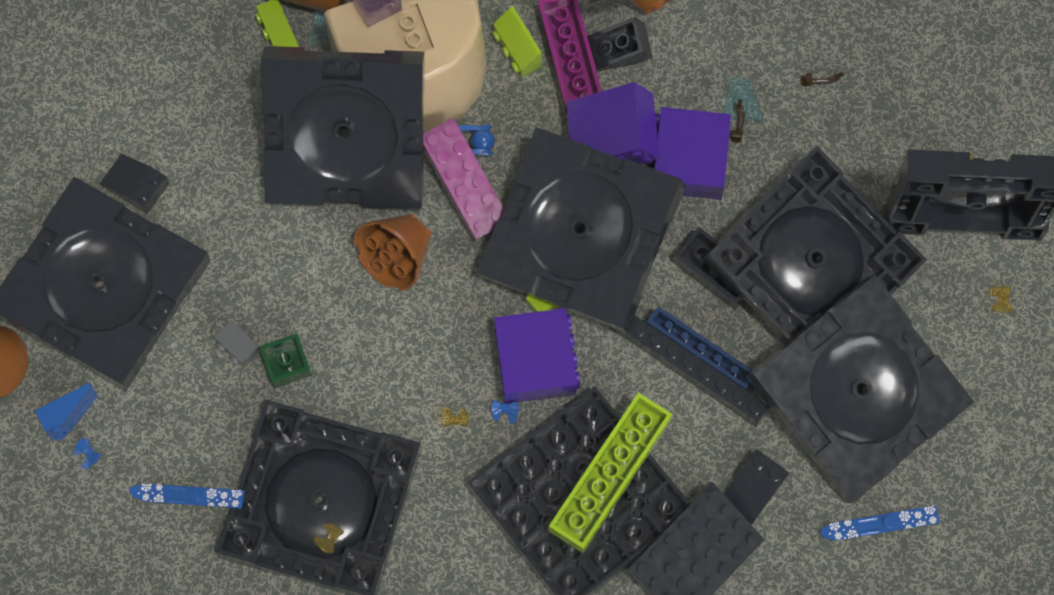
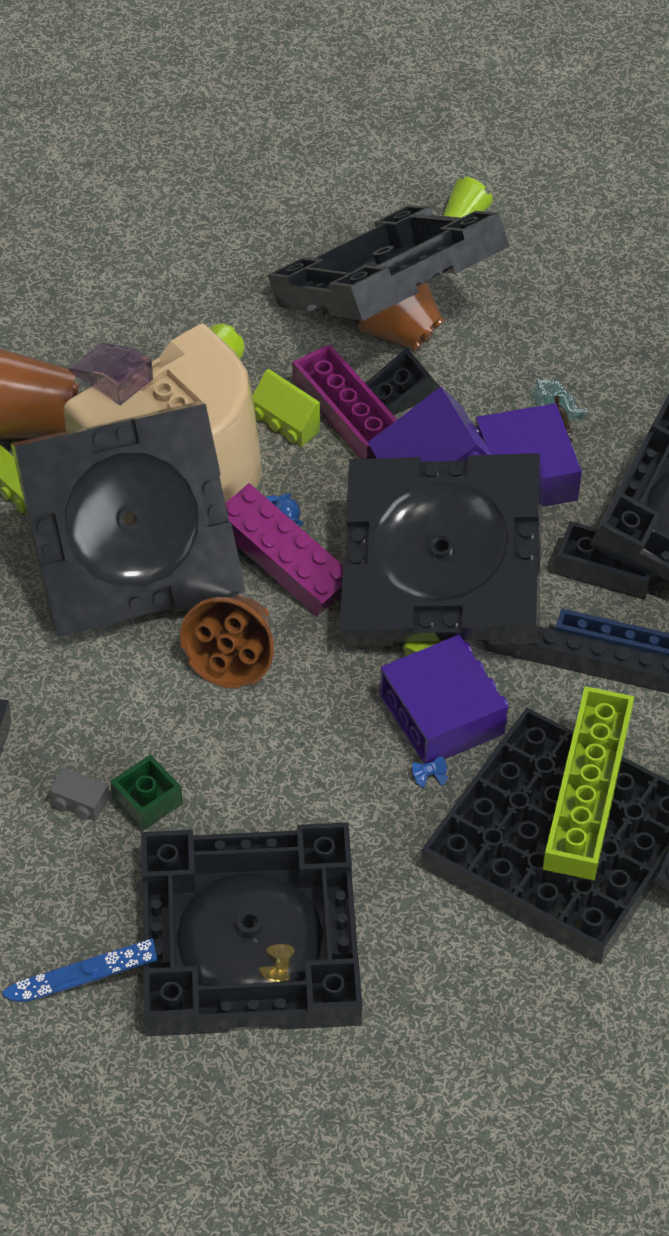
camera: 20 degrees left, 20 degrees down
(447, 418) = (365, 800): clear yellow piece -> none
(809, 81) = (620, 366): dark brown piece -> none

